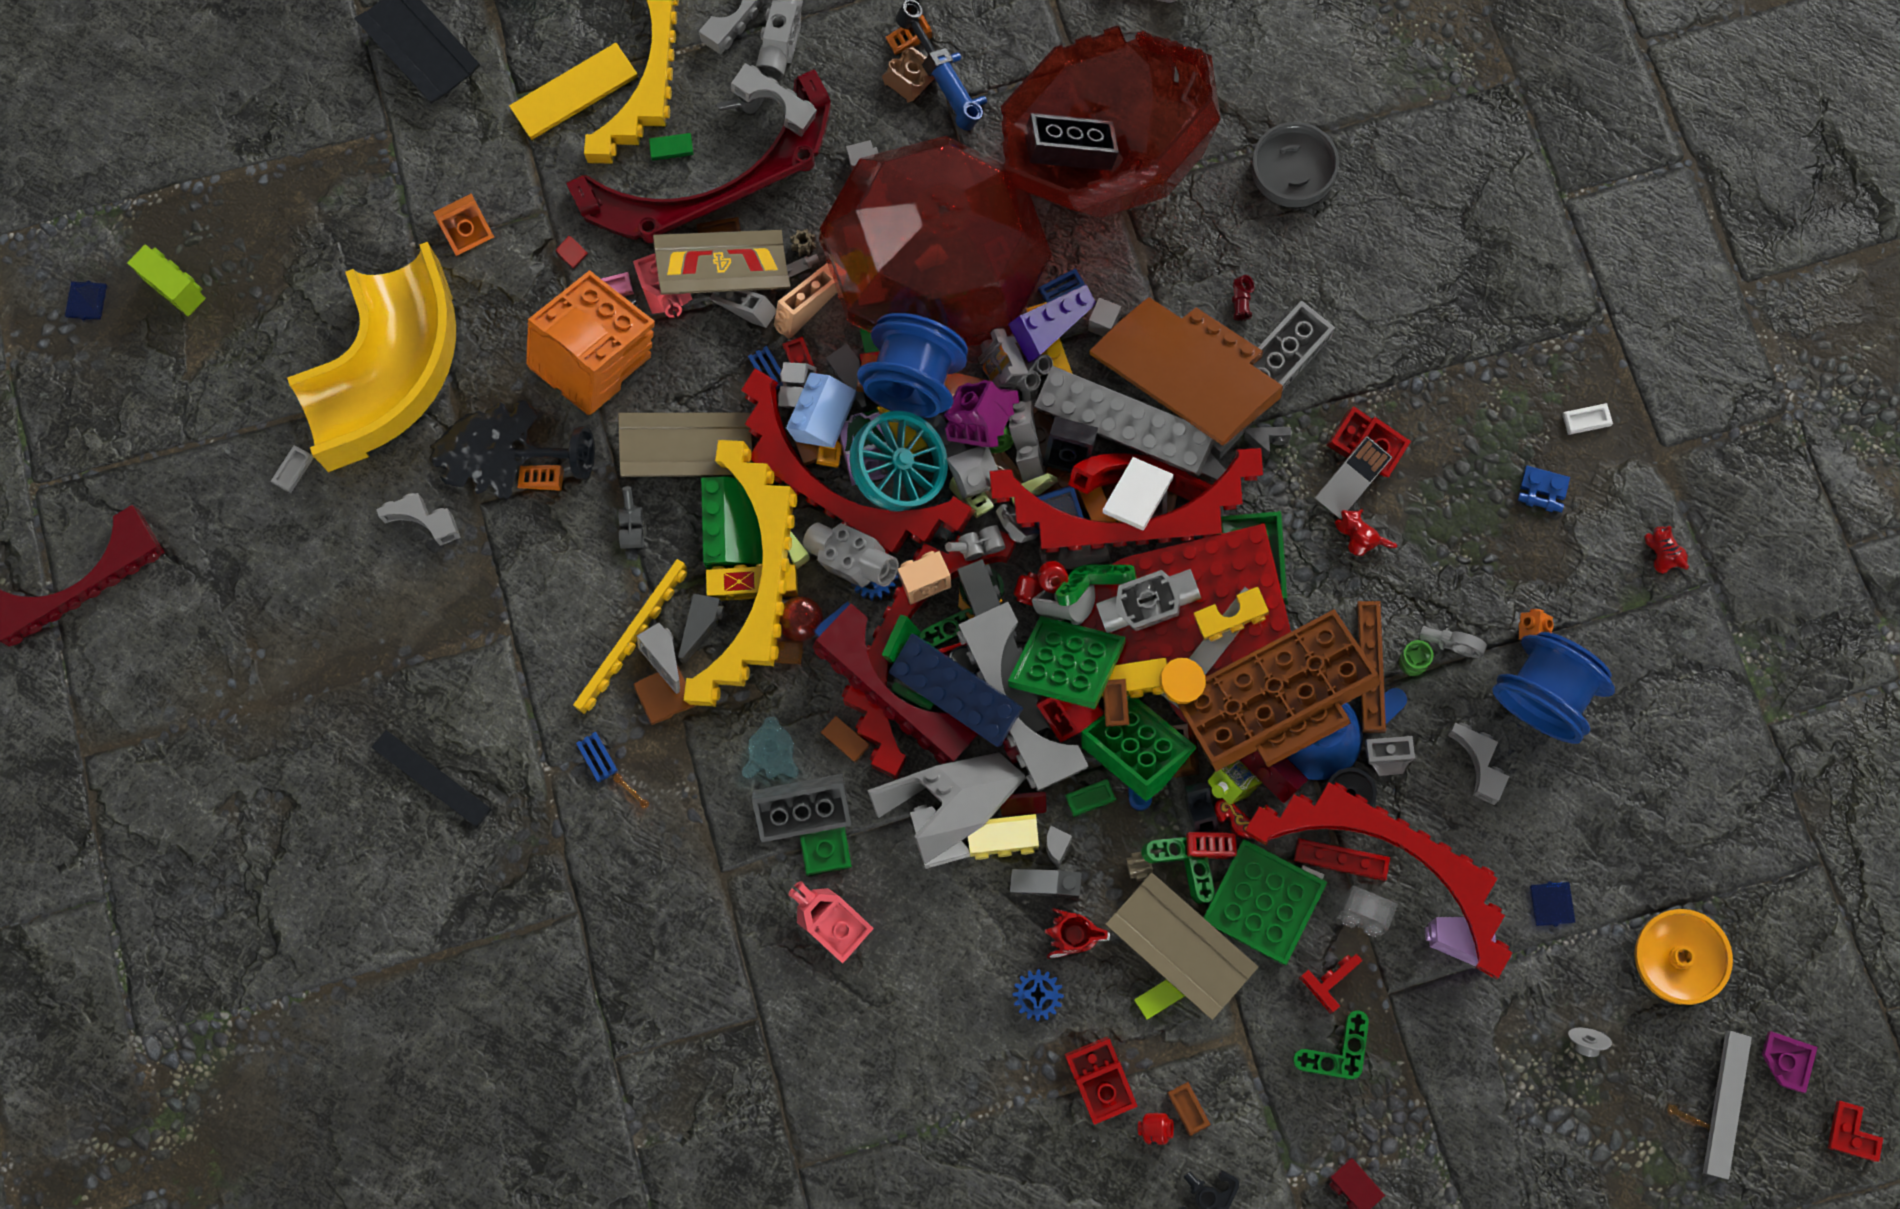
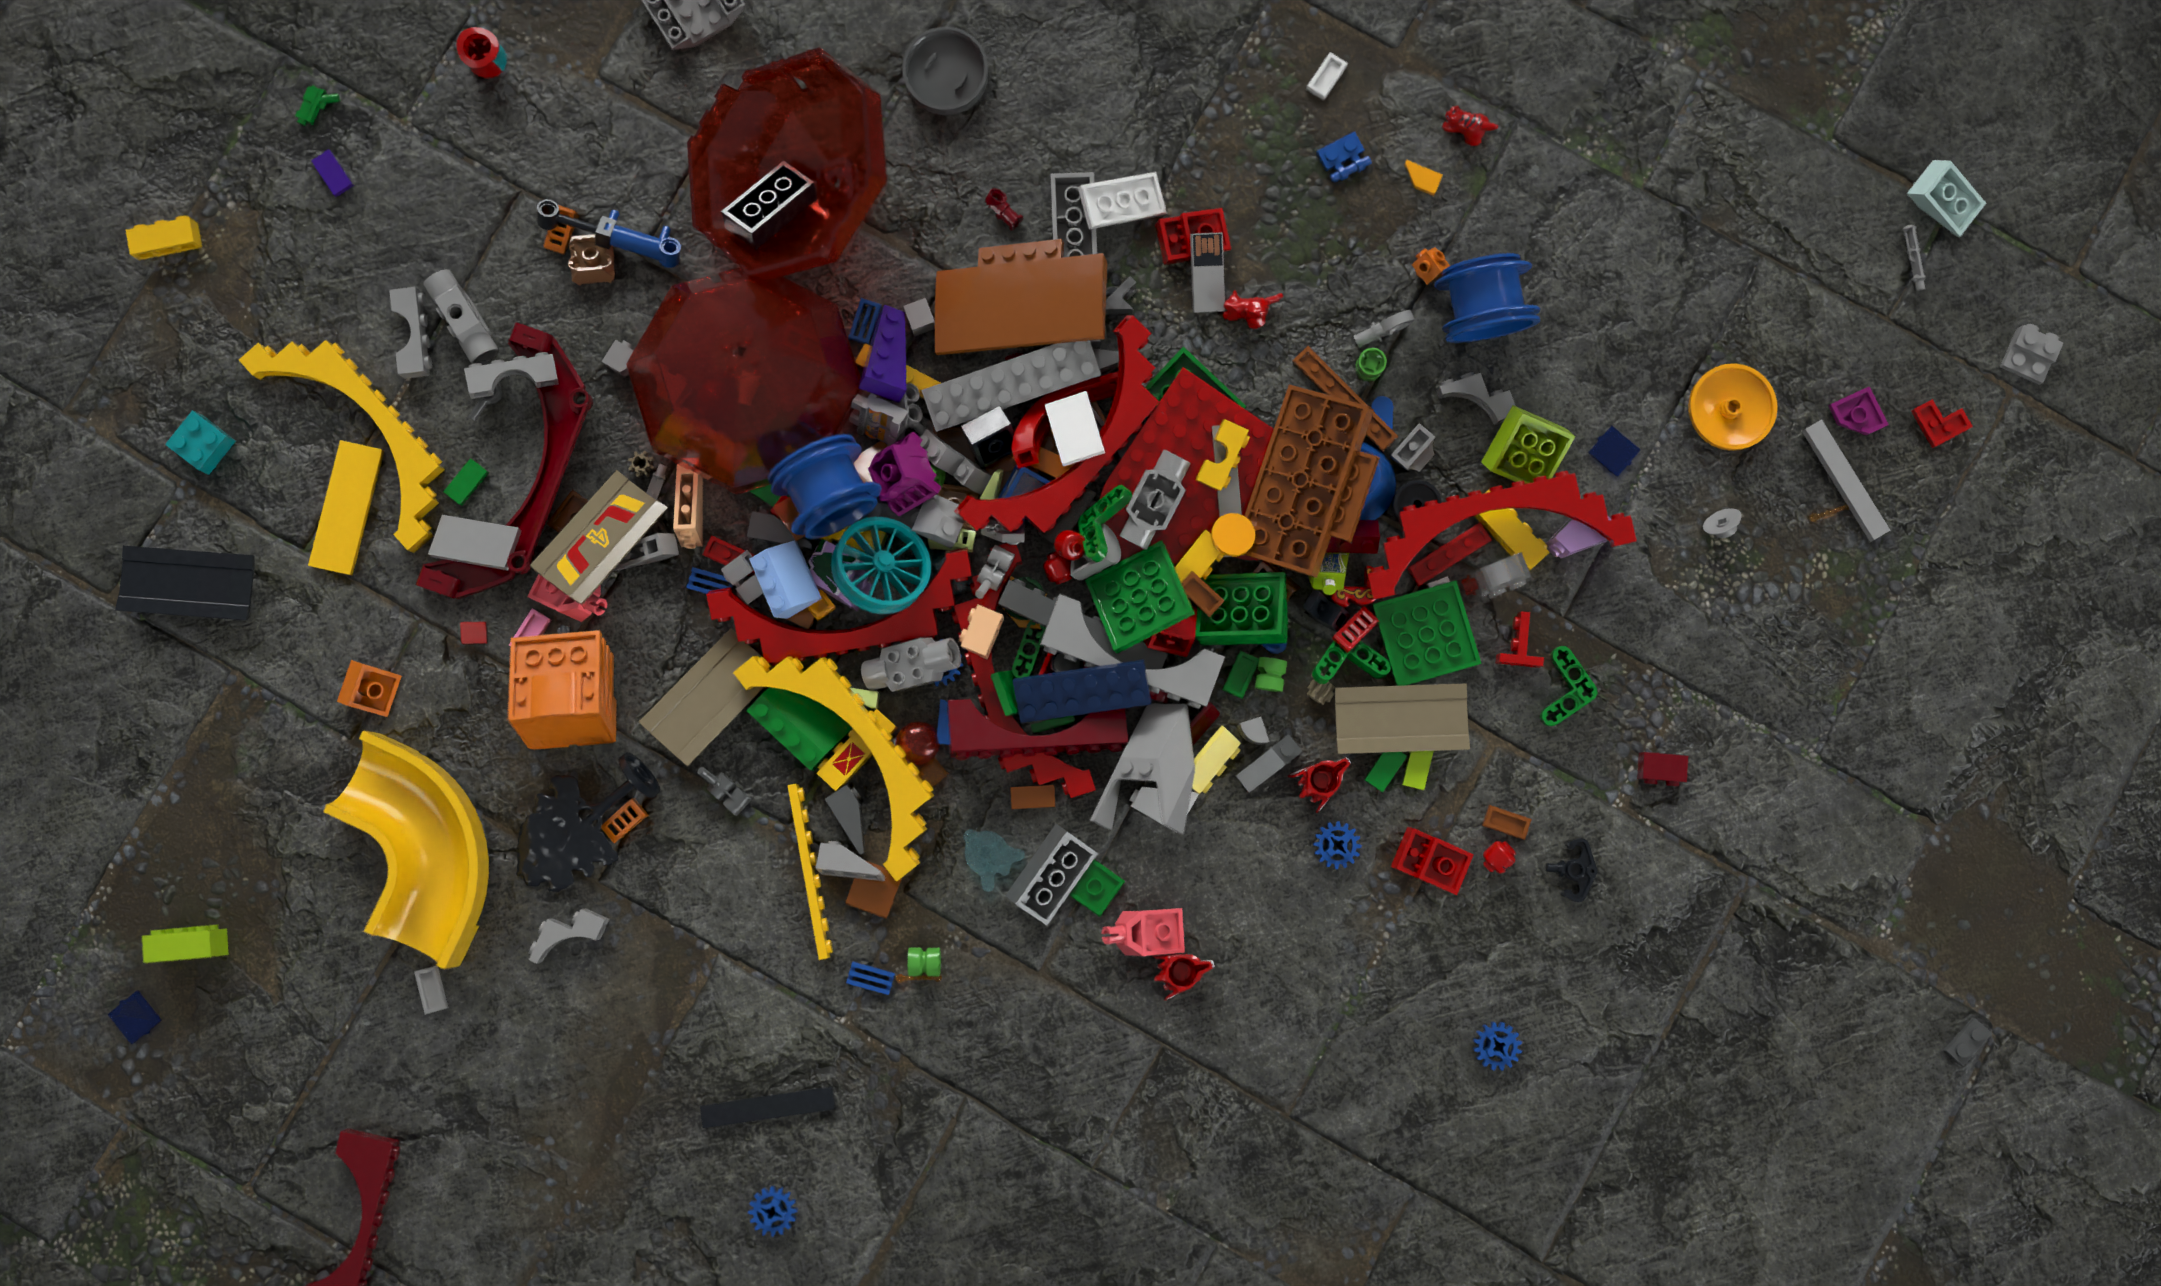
camera: 50 degrees left, 10 degrees up
(354, 847) = (764, 1208): none -> blue gear
(634, 189) = (474, 542): none -> light grey tile
(644, 779) = (924, 961): none -> bright green wheel
(824, 974) = (1181, 971): none -> red piece
(1112, 817) = (1270, 674): none -> bright green wheel
(1132, 975) = (1385, 769): none -> green tile
(1335, 897) = (1470, 585): none -> clear red plate
(1338, 367) = (1122, 200): none -> white tile
(1407, 891) = (1514, 535): none -> yellow brick
(1483, 831) = (1527, 447): none -> lime slope
(1593, 560) = (1423, 178): none -> light orange tile

